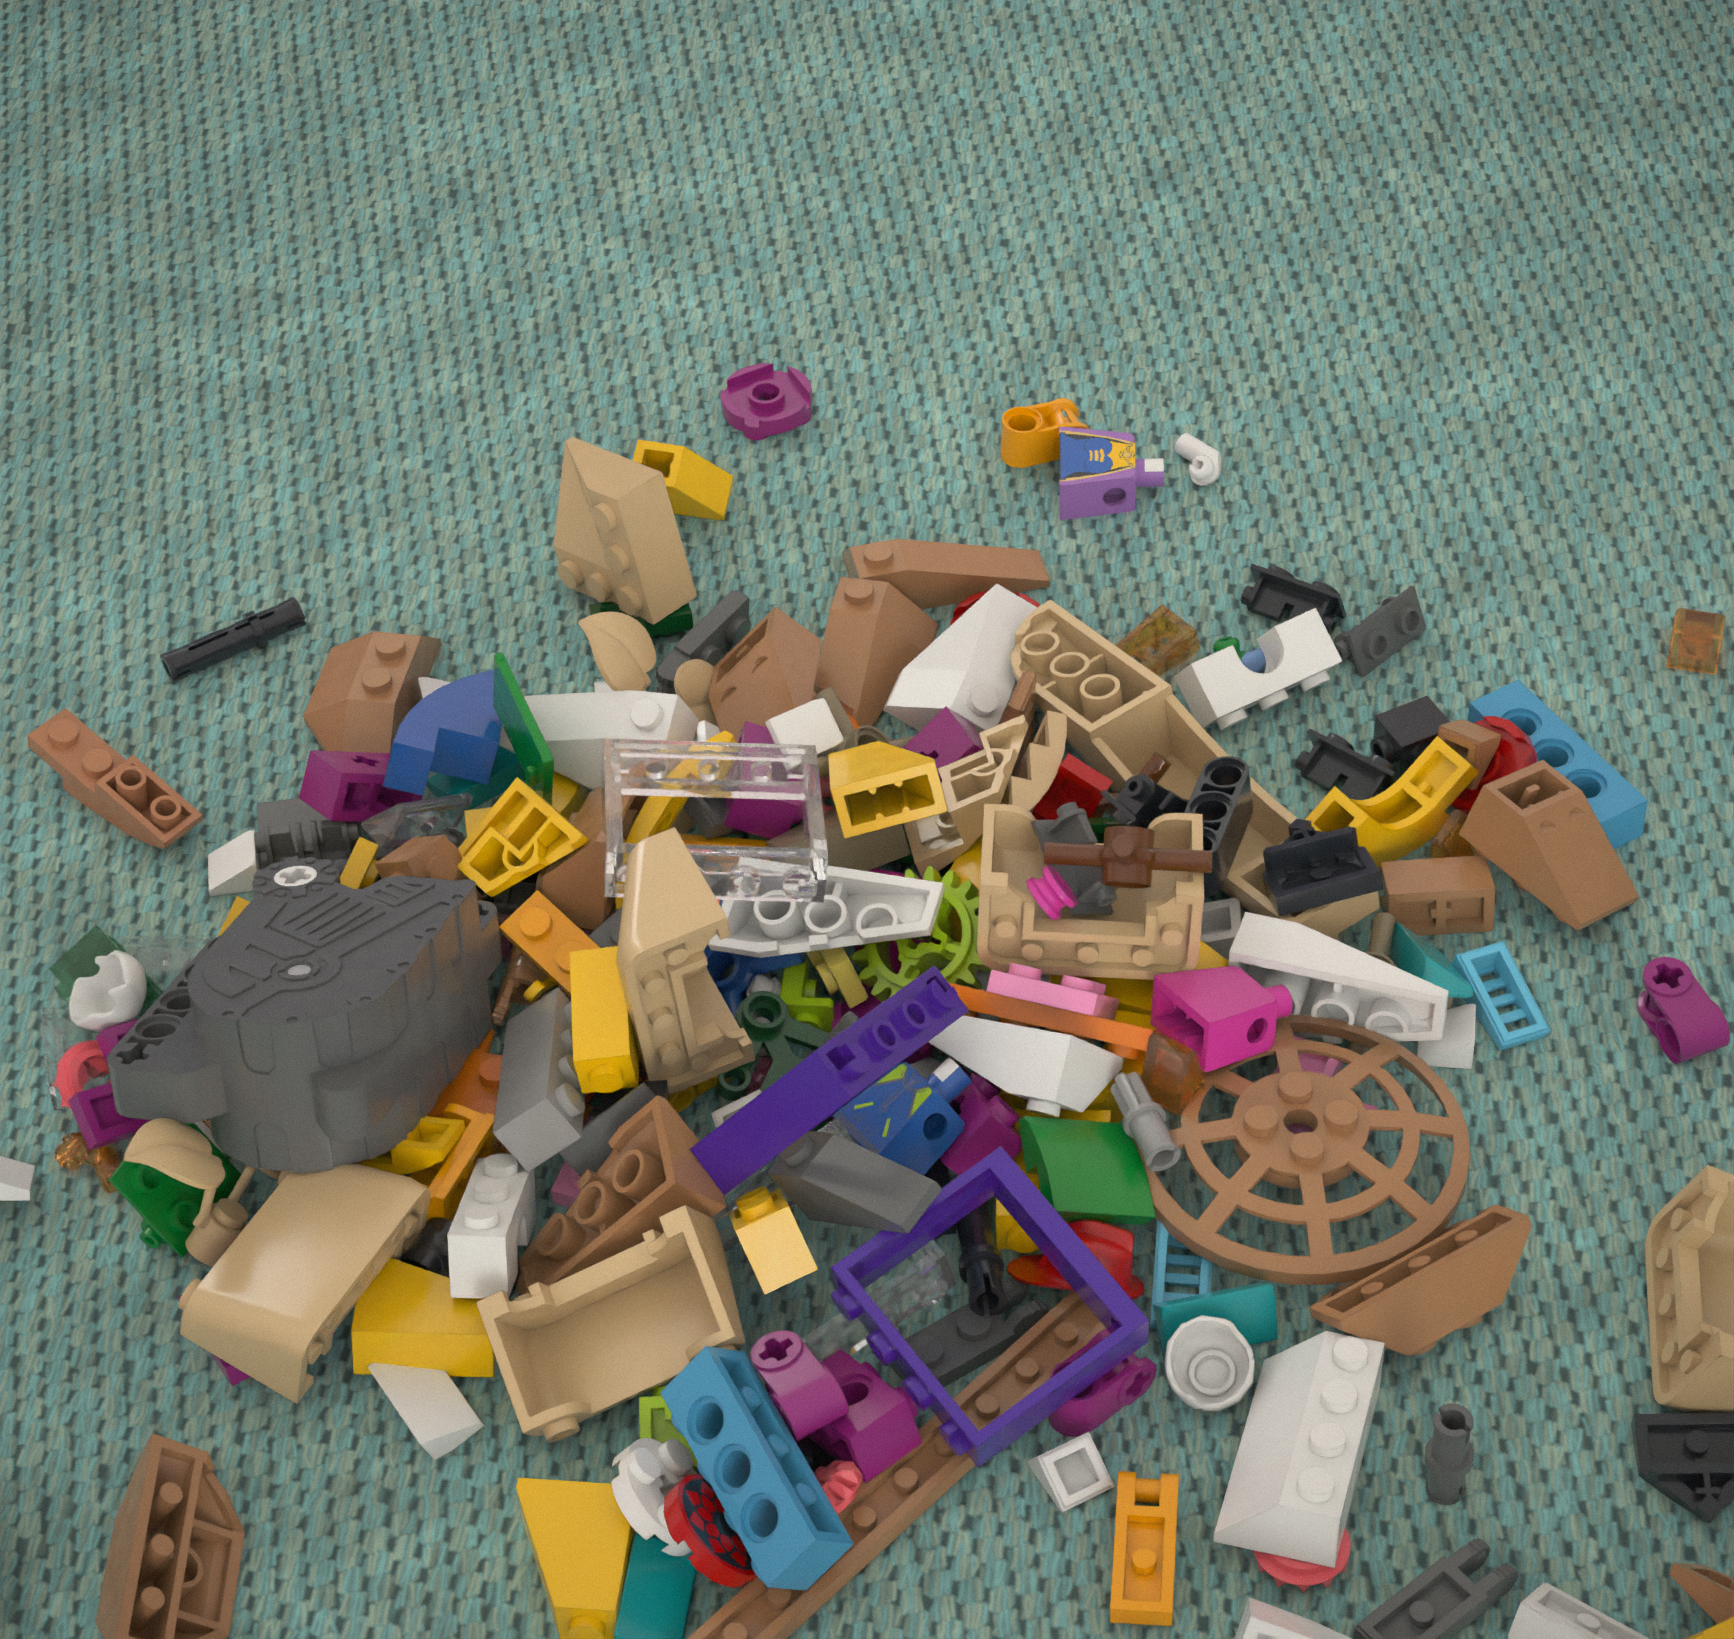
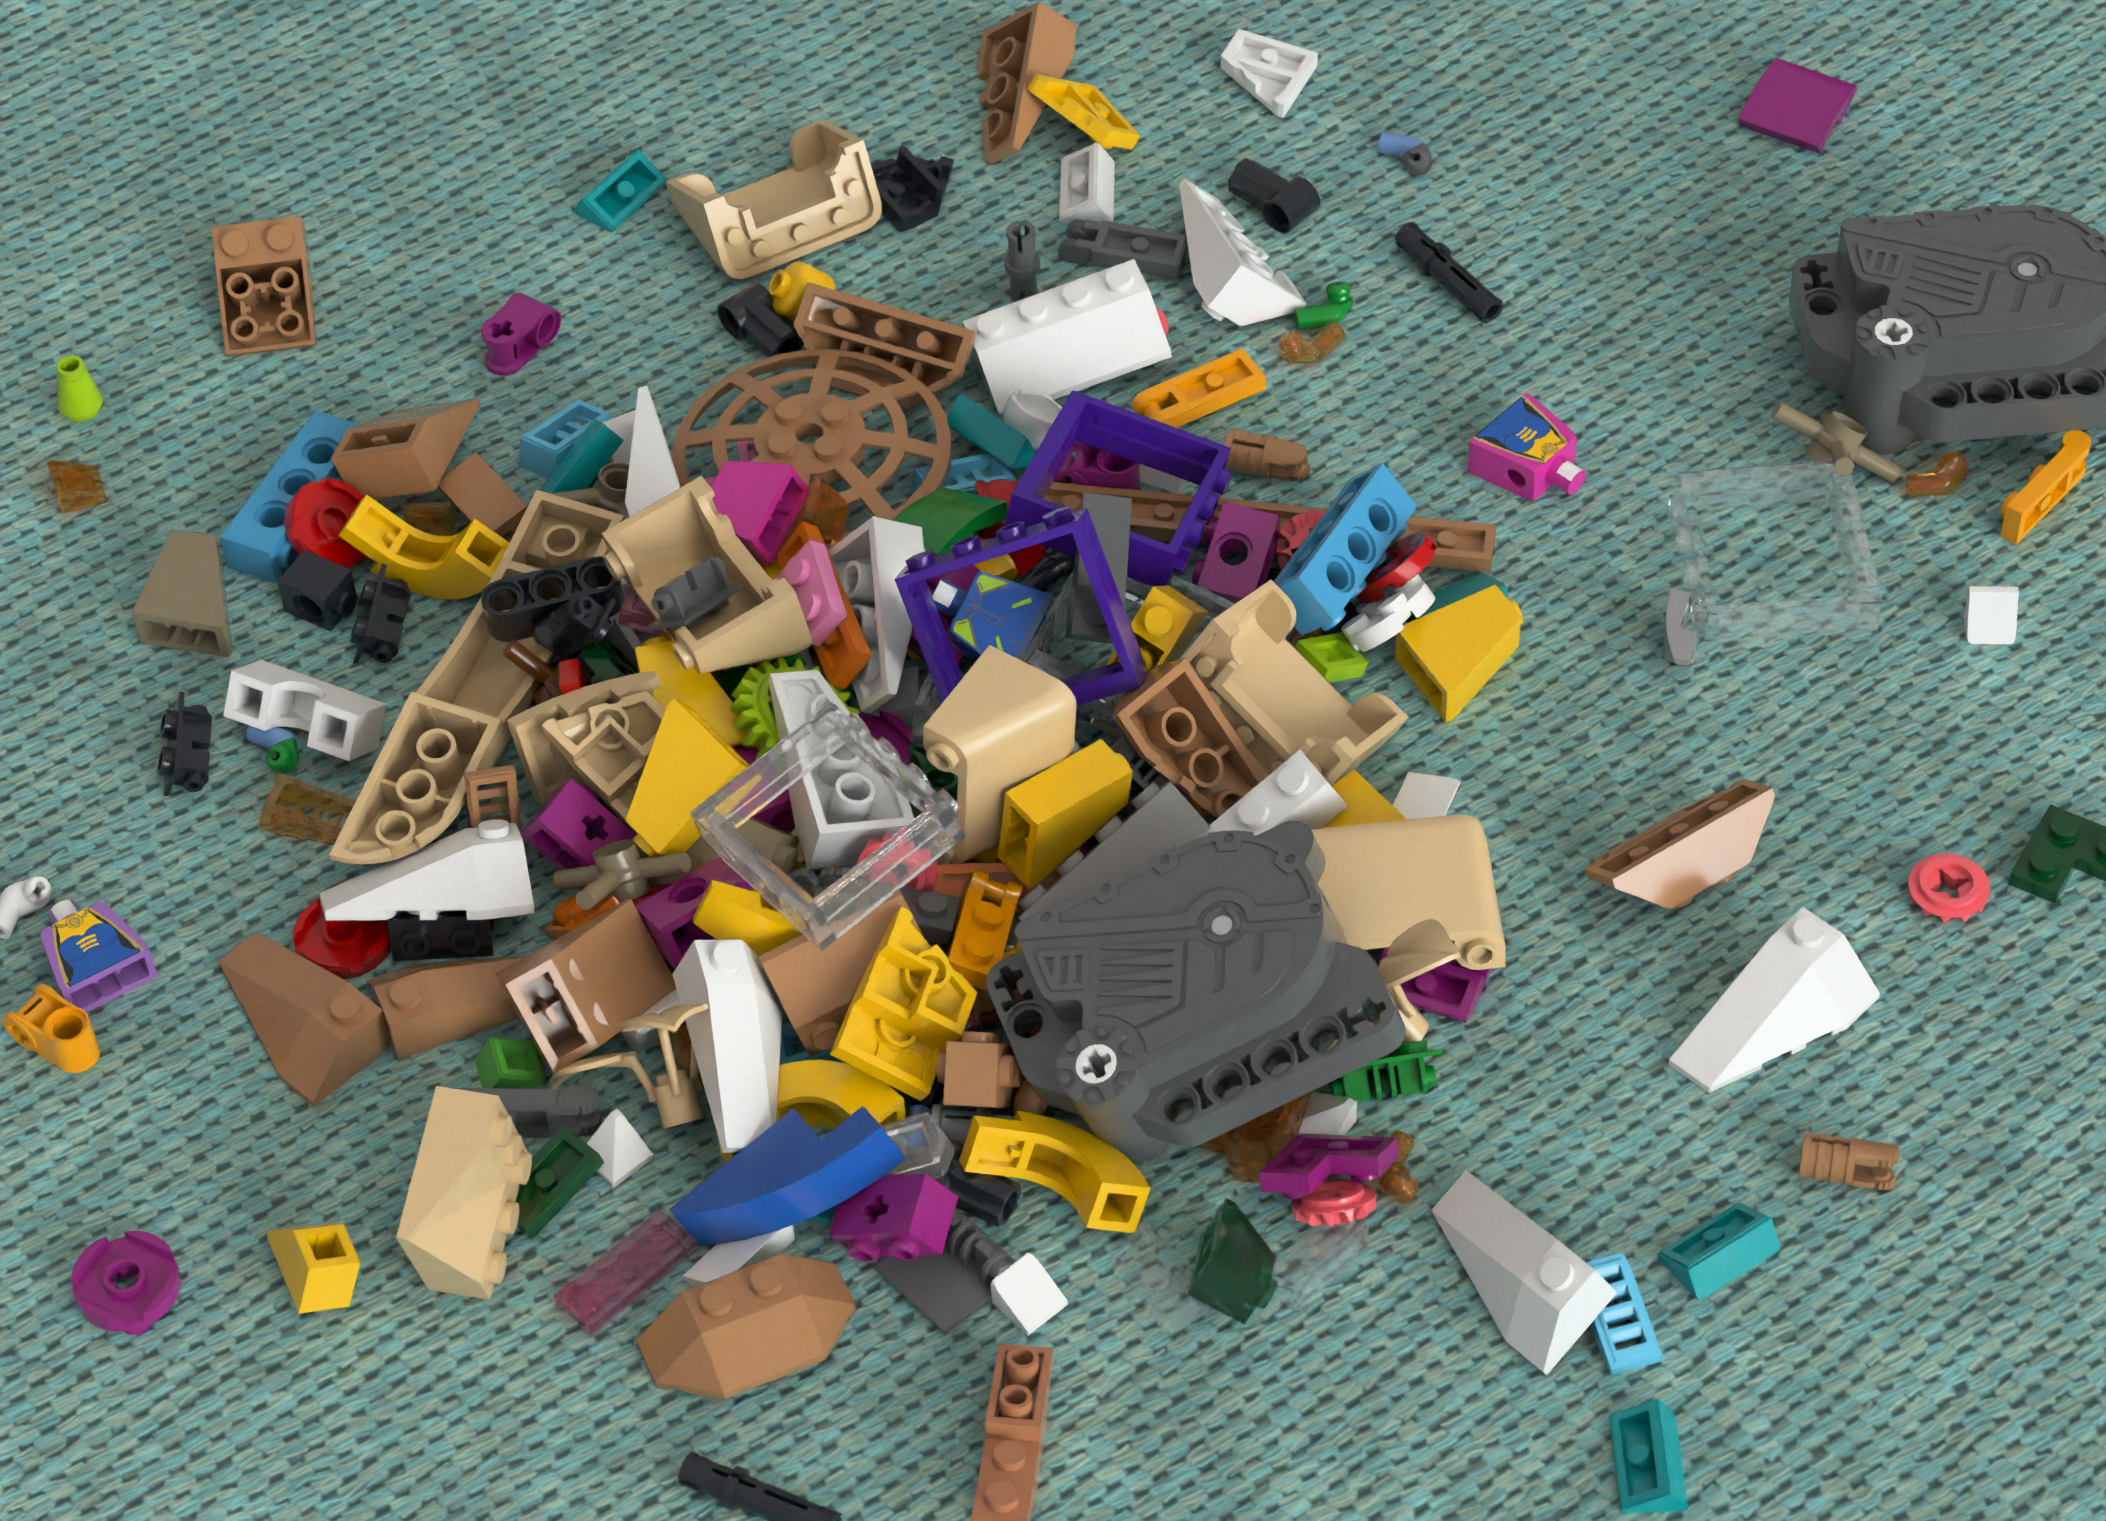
camera: 125 degrees left, 5 degrees up
(111, 995) = (1269, 1204): white hair -> none
(504, 631) = (625, 1272): none -> clear pink hinge
(522, 730) = (786, 1070): green container -> none
(798, 1383) = (1264, 553): magenta piece -> none
(807, 725) = (645, 878): white slope -> none
(998, 1547) = (1266, 456): none -> medium nougat hinge
(1052, 892) = (747, 582): dark pink bush -> none
(1128, 857) = (696, 529): reddish brown bar -> none
(1145, 1122) = (880, 504): light grey axle -> none
(1317, 868) = (557, 519): black slope -> none
(1382, 632) = (170, 669): dark grey hinge -> none
(1472, 654) = (186, 597): none -> dark tan slope
(1472, 743) = (322, 526): medium nougat slope -> none
(1557, 1254) = (790, 284): none -> yellow head
(1564, 1209) = (753, 316): none -> black piece

